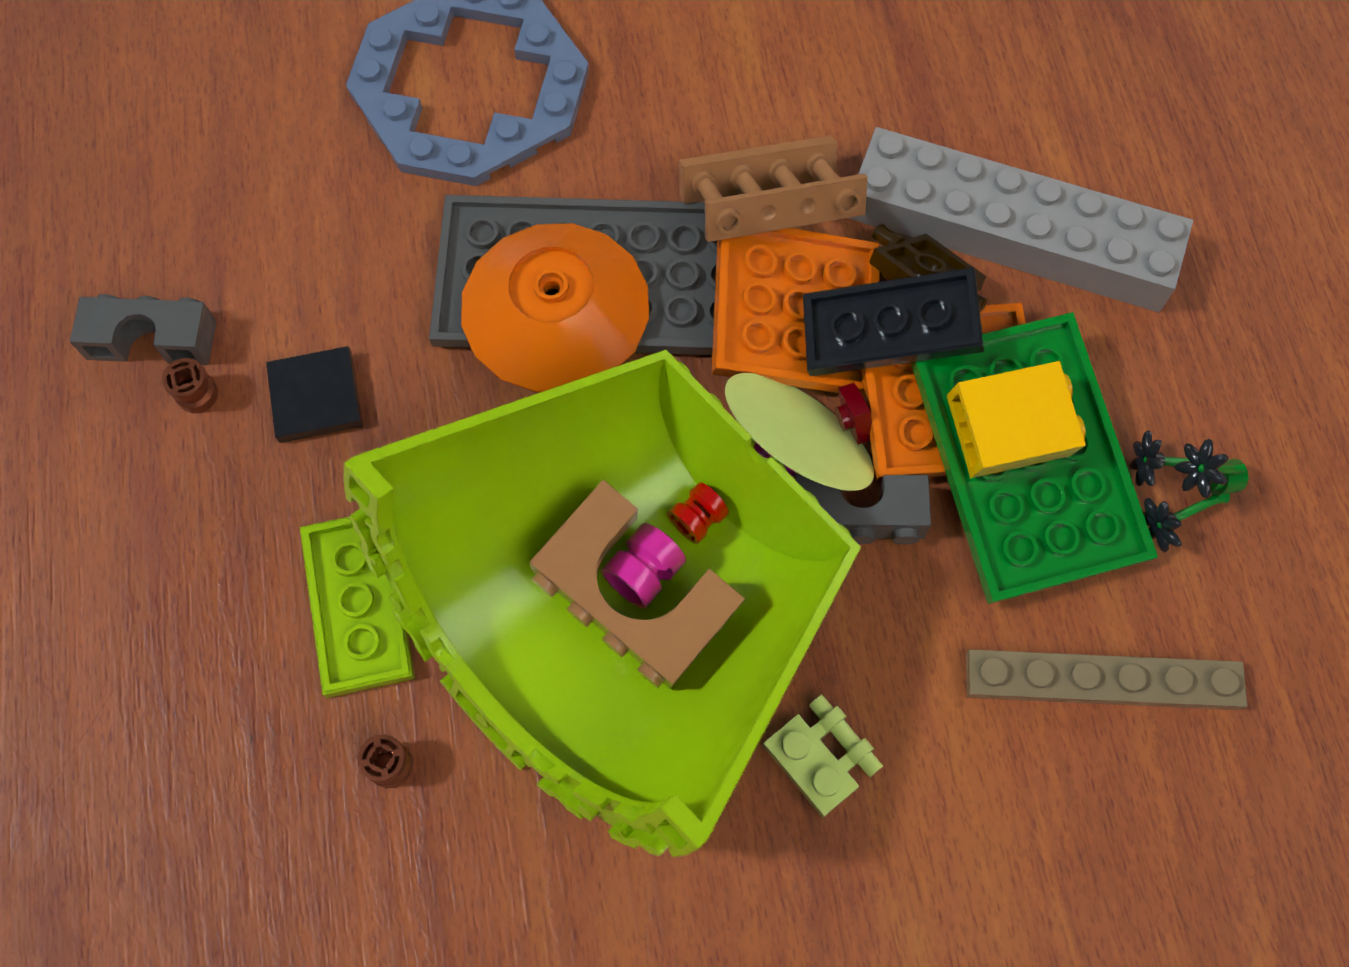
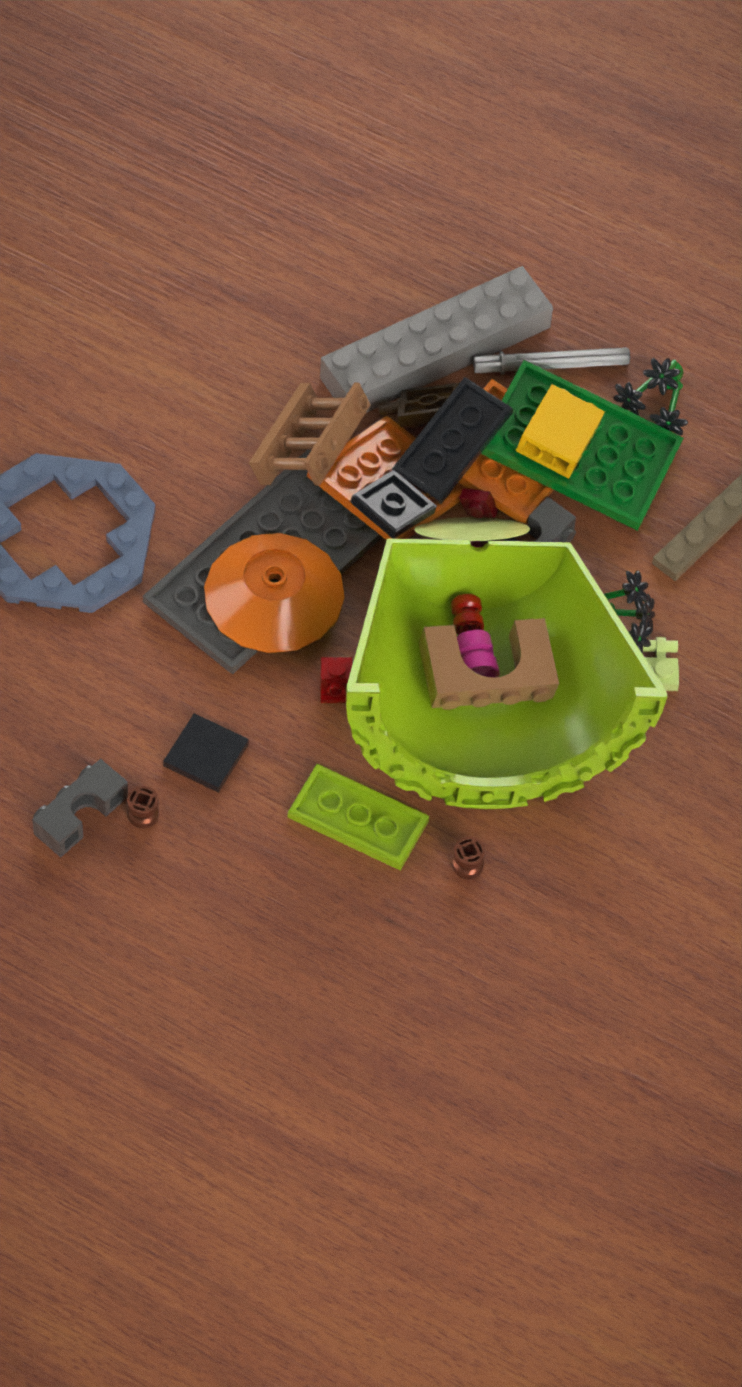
camera: 55 degrees left, 10 degrees down
(757, 329) = (393, 504): none -> black tile
(842, 652) = (635, 592): none -> black plant
(1118, 346) = (552, 360): none -> light grey axle

